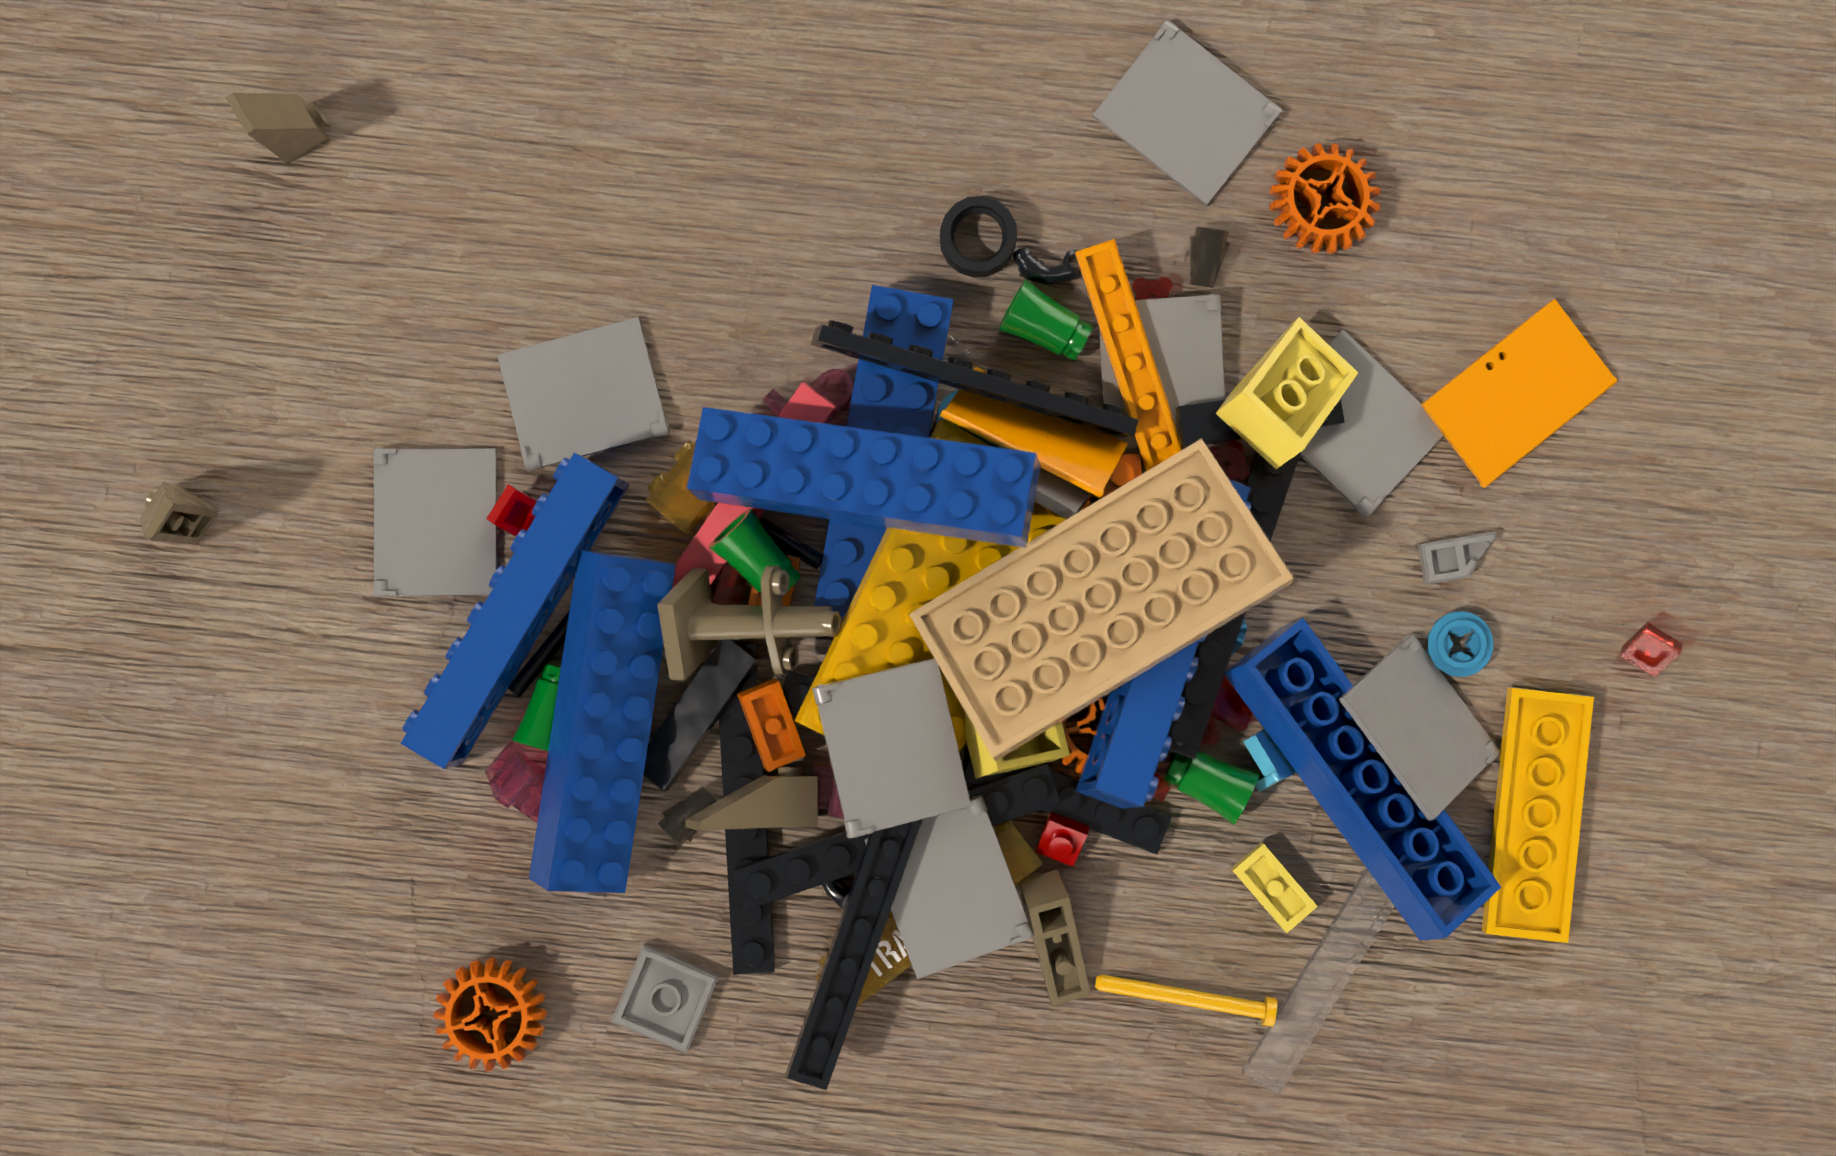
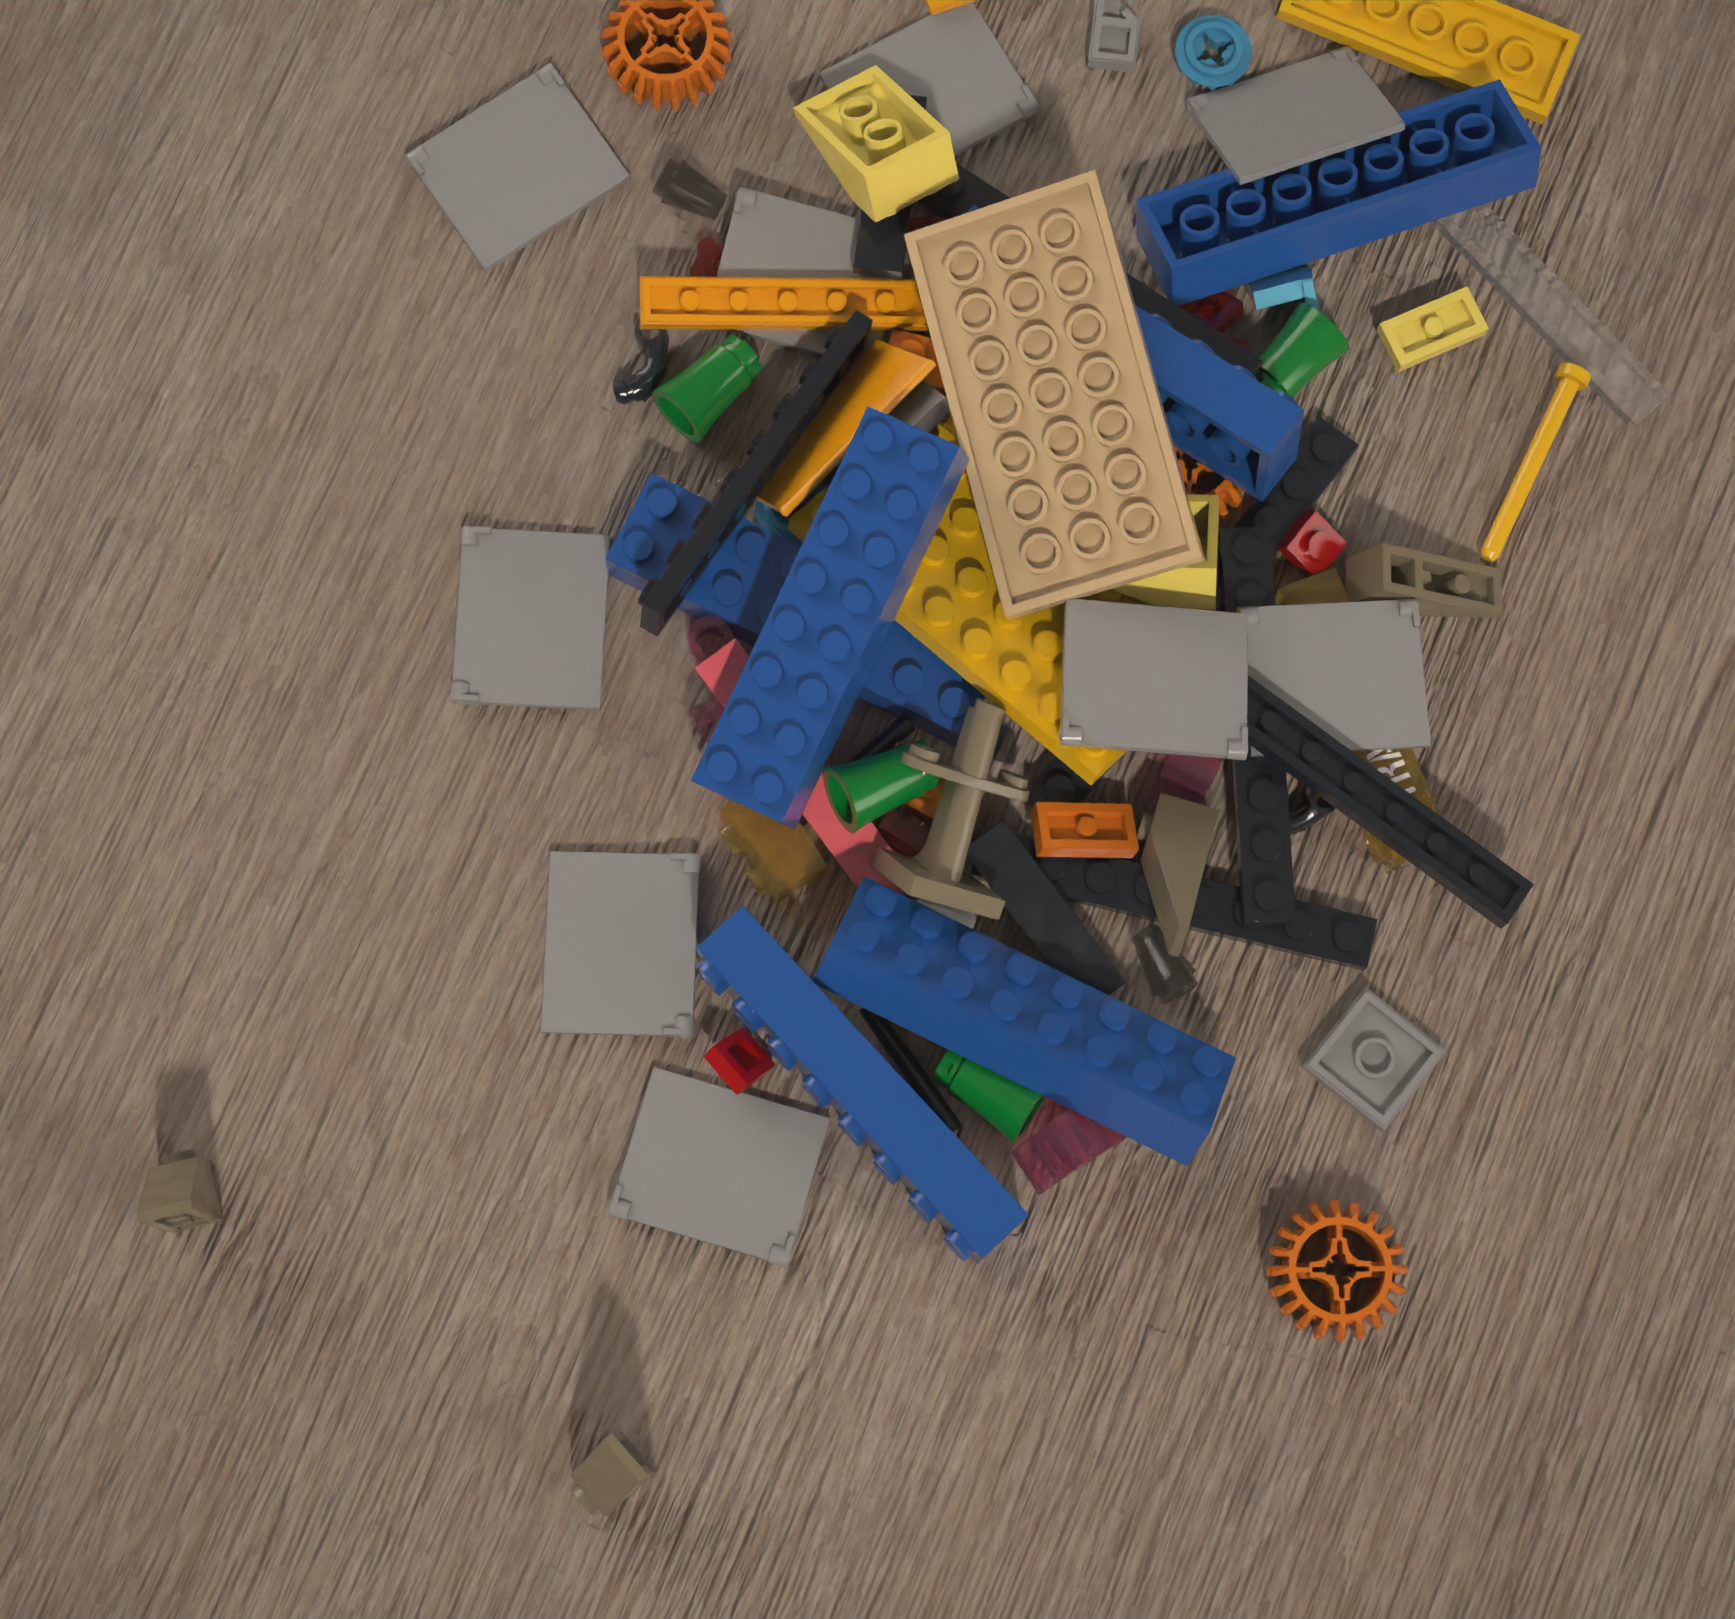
camera: 75 degrees left, 10 degrees down
(817, 243) = (530, 619): none -> light grey piece
(976, 205) = (577, 397): black tyre -> none

